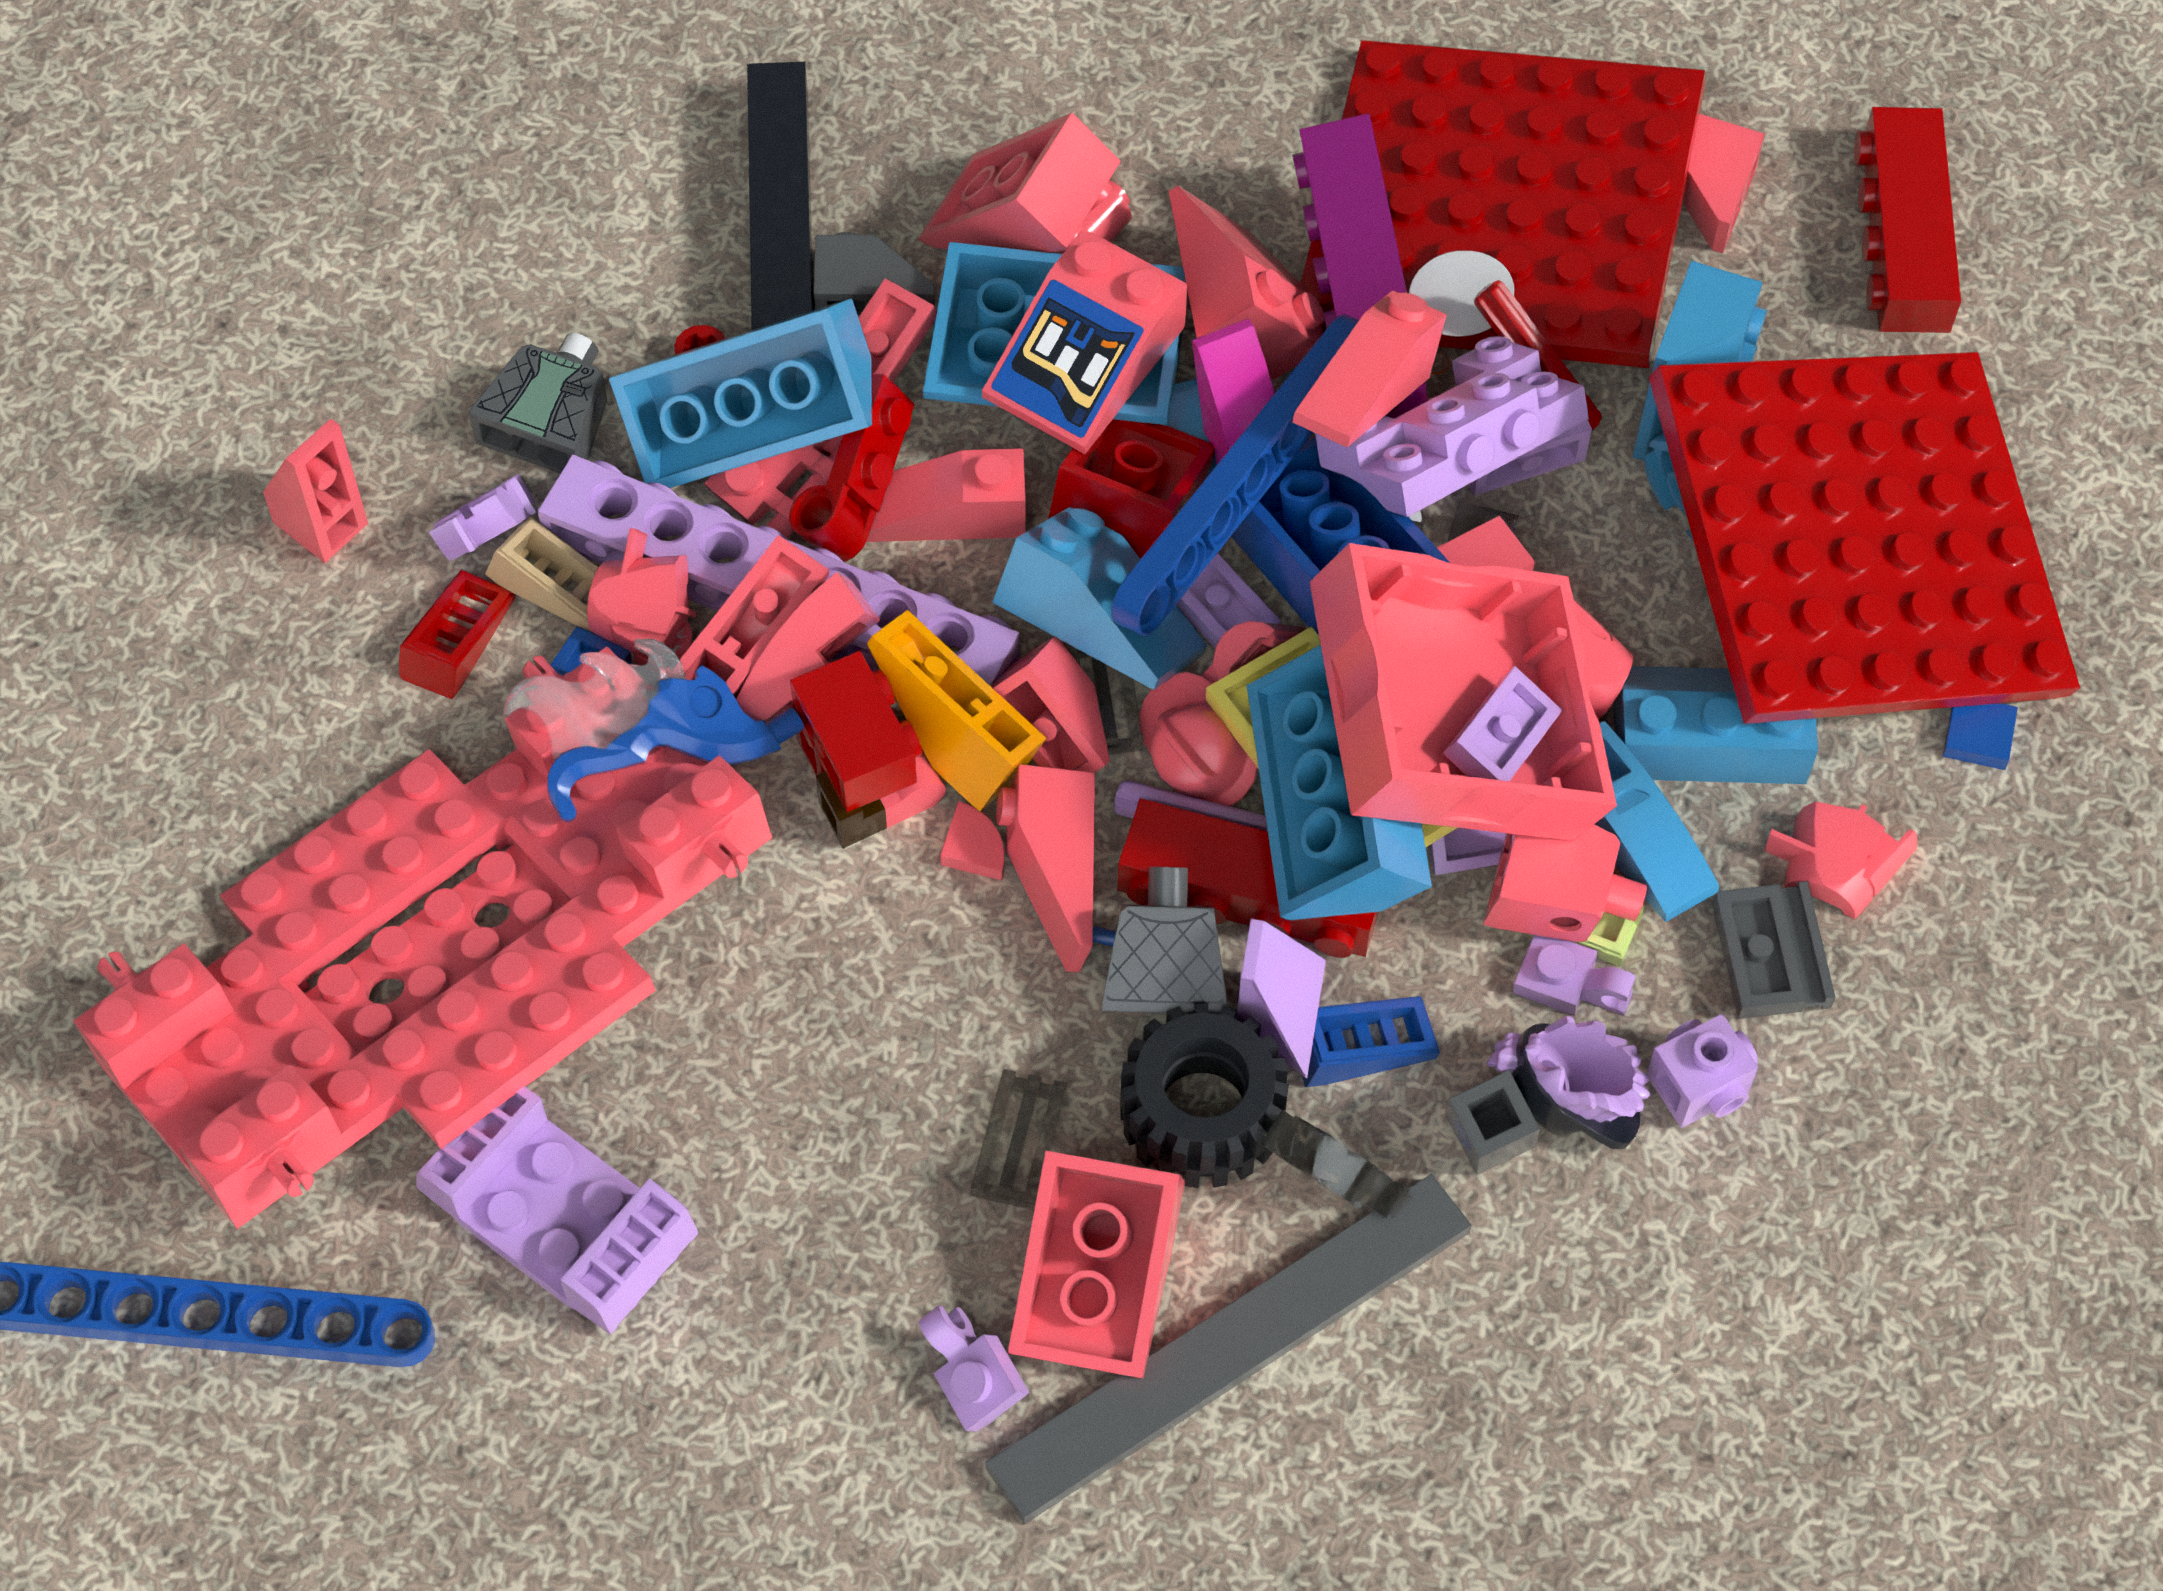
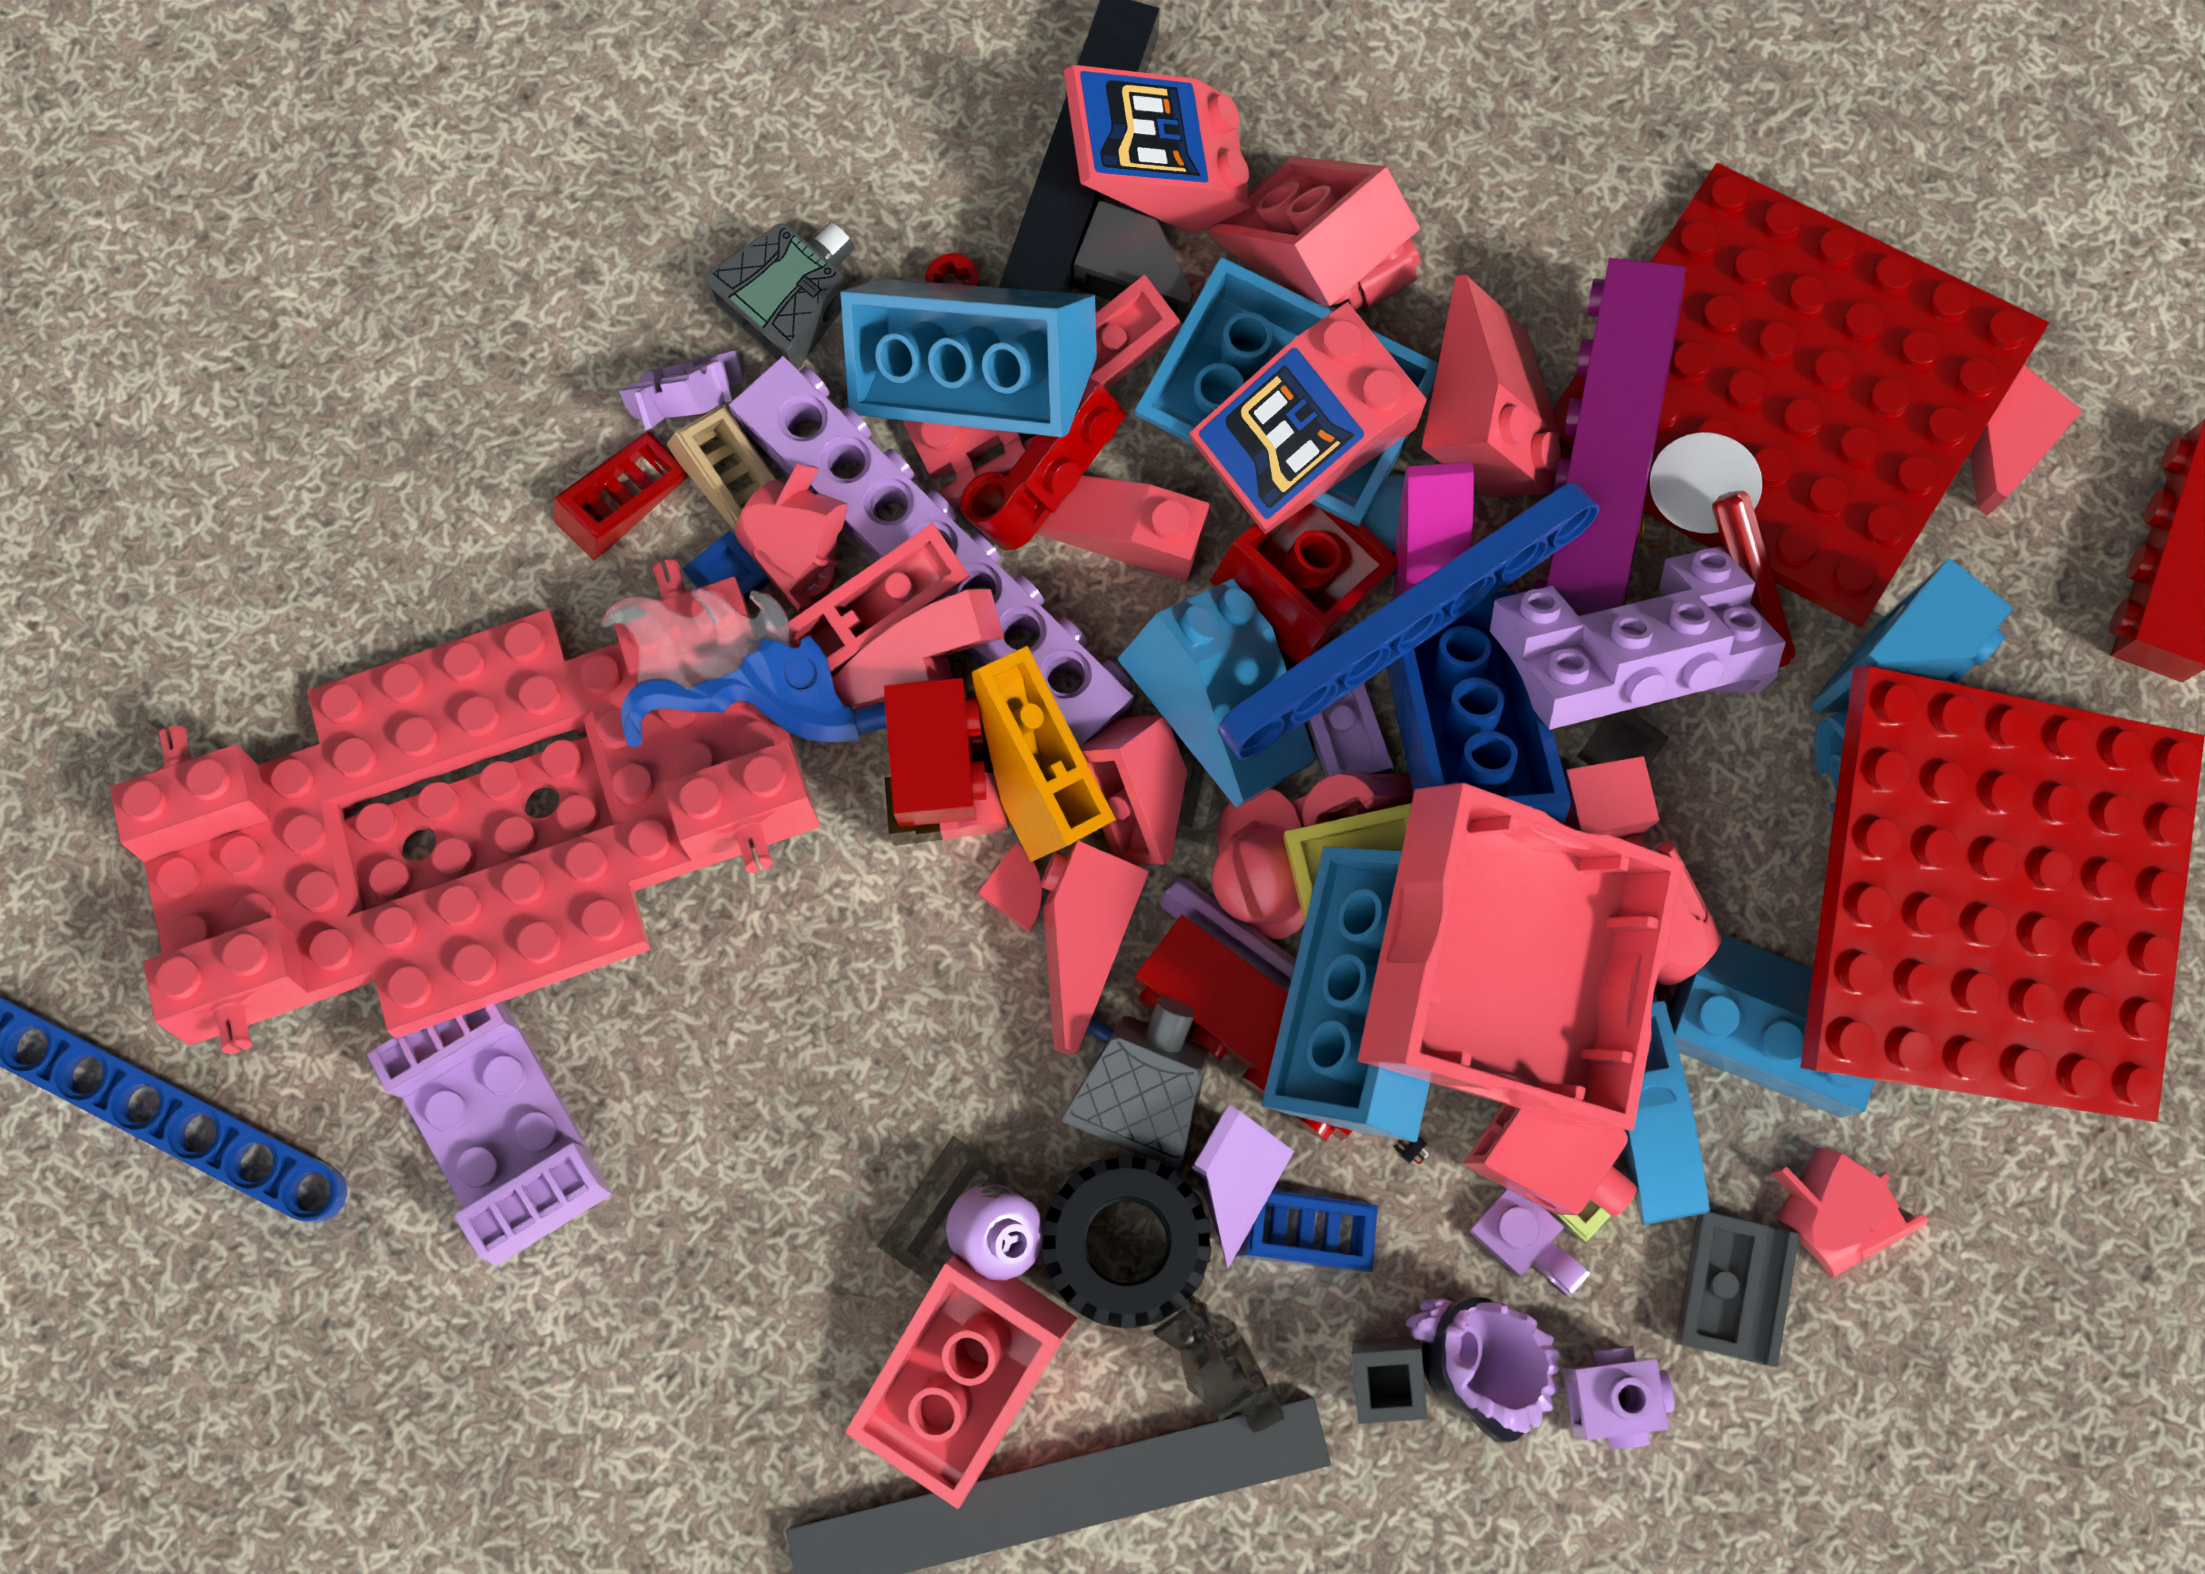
camera: 20 degrees right, 15 degrees up
(317, 494) = (531, 319): coral slope -> none
(857, 169) = (1158, 144): none -> slope
(978, 1373) = (810, 1439): lavender plate -> none
(1079, 1118) = (995, 1231): none -> lavender head
(1373, 369) = (1574, 562): coral slope -> none
(1432, 940) = (1410, 1150): none -> black piece
(1503, 729) = (1549, 1010): lavender plate -> none
(1981, 734) = (2037, 1133): blue tile -> none

